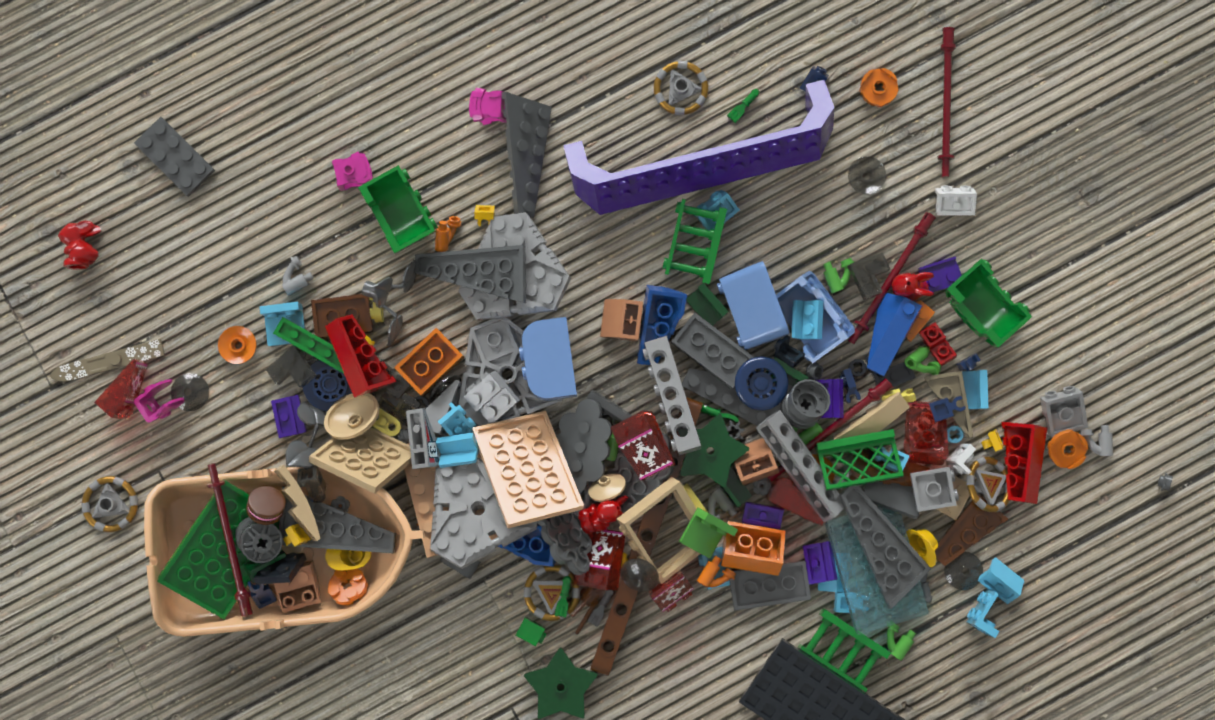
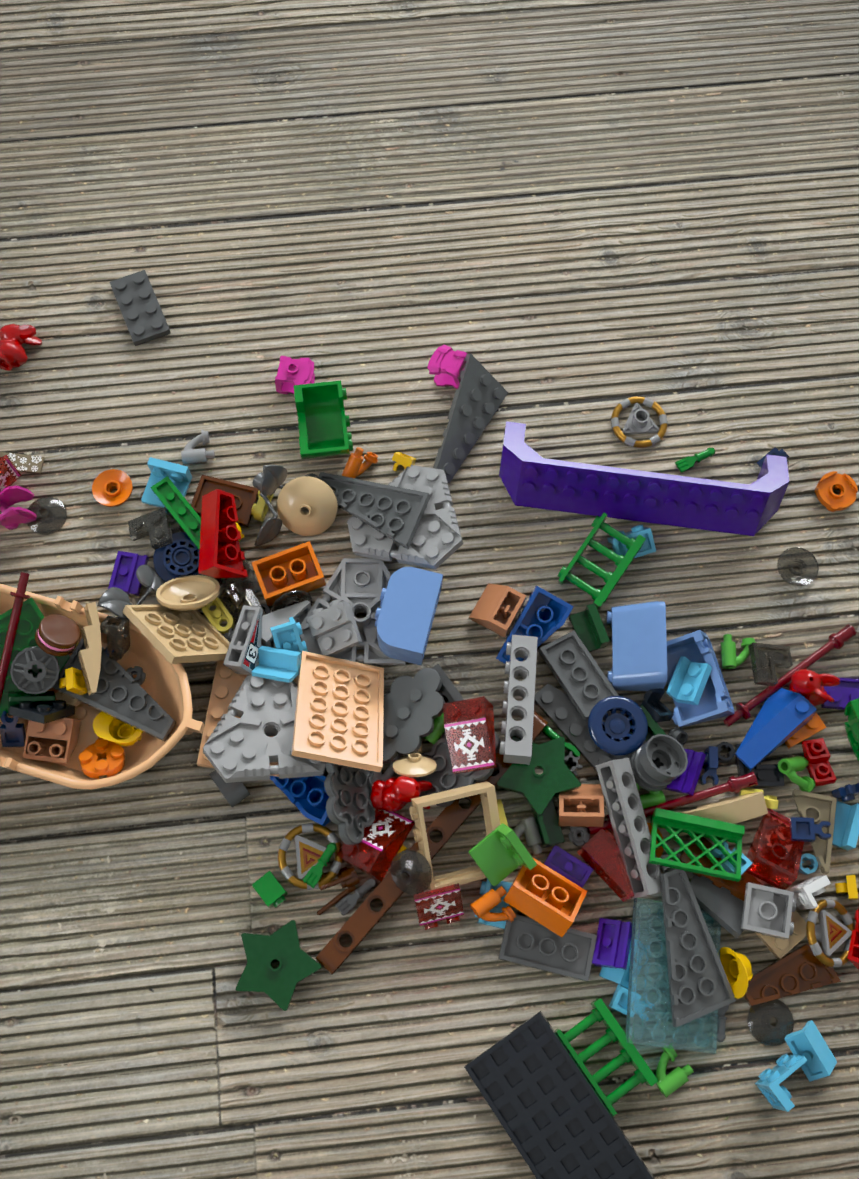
camera: 20 degrees right, 15 degrees down
(418, 285) = (307, 493): none -> tan dish

